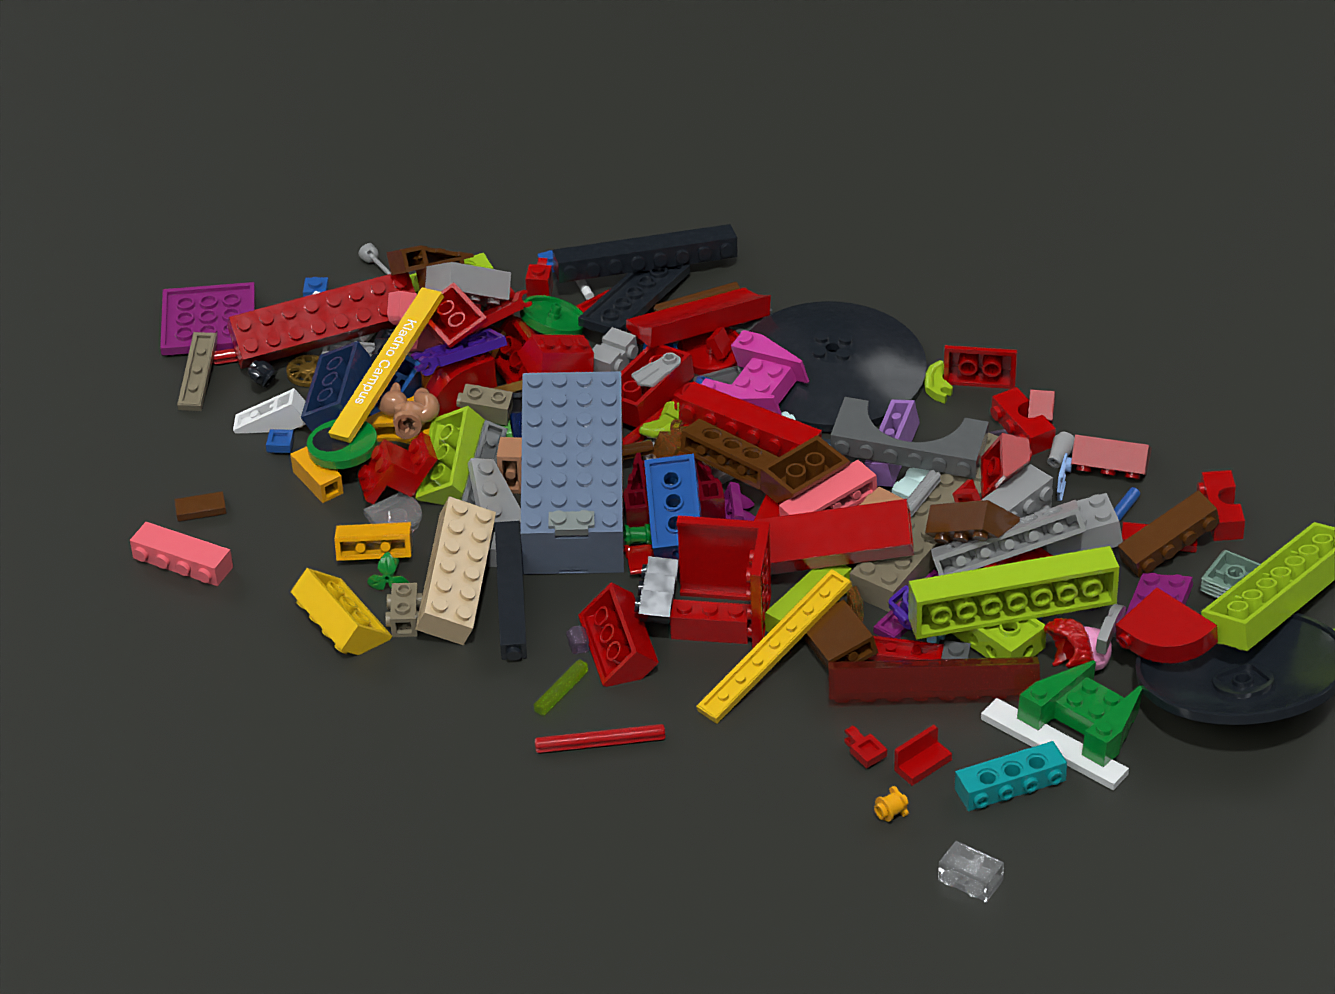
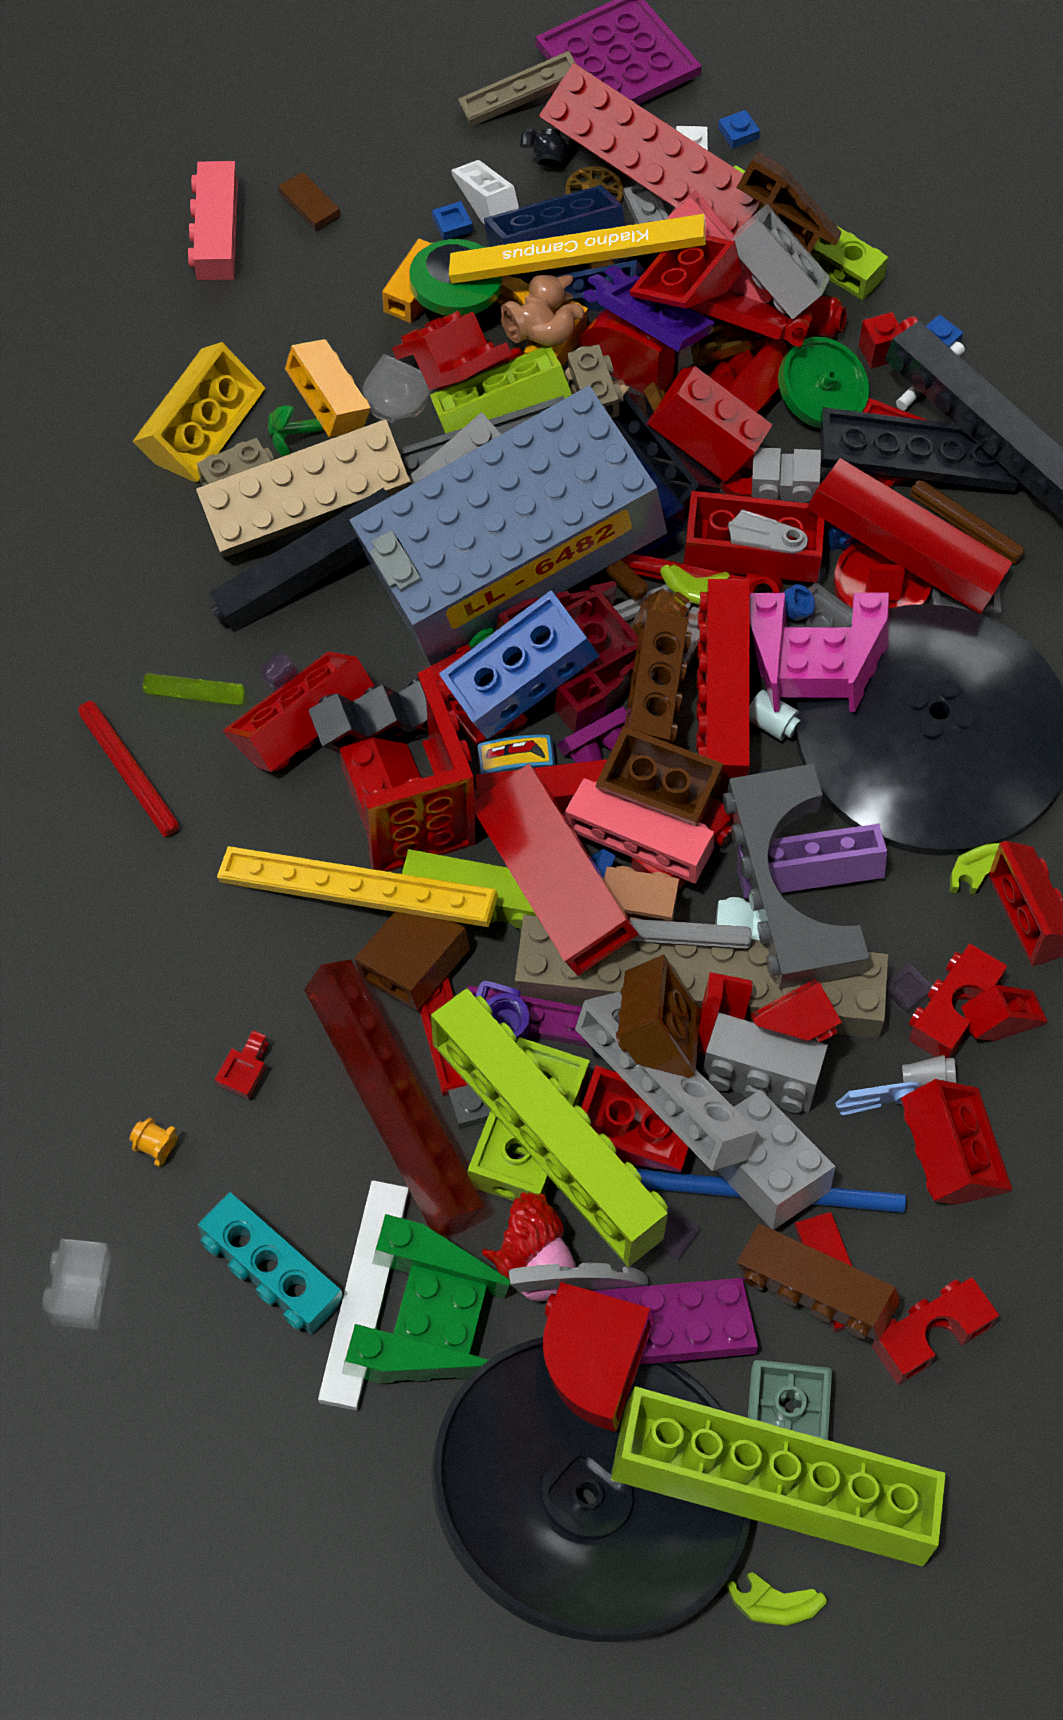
camera: 60 degrees right, 20 degrees up
(372, 256) = (827, 150): light grey hinge -> none
(855, 602) = (492, 946): clear orange tile -> none
(921, 756) = (258, 1142): red panel -> none

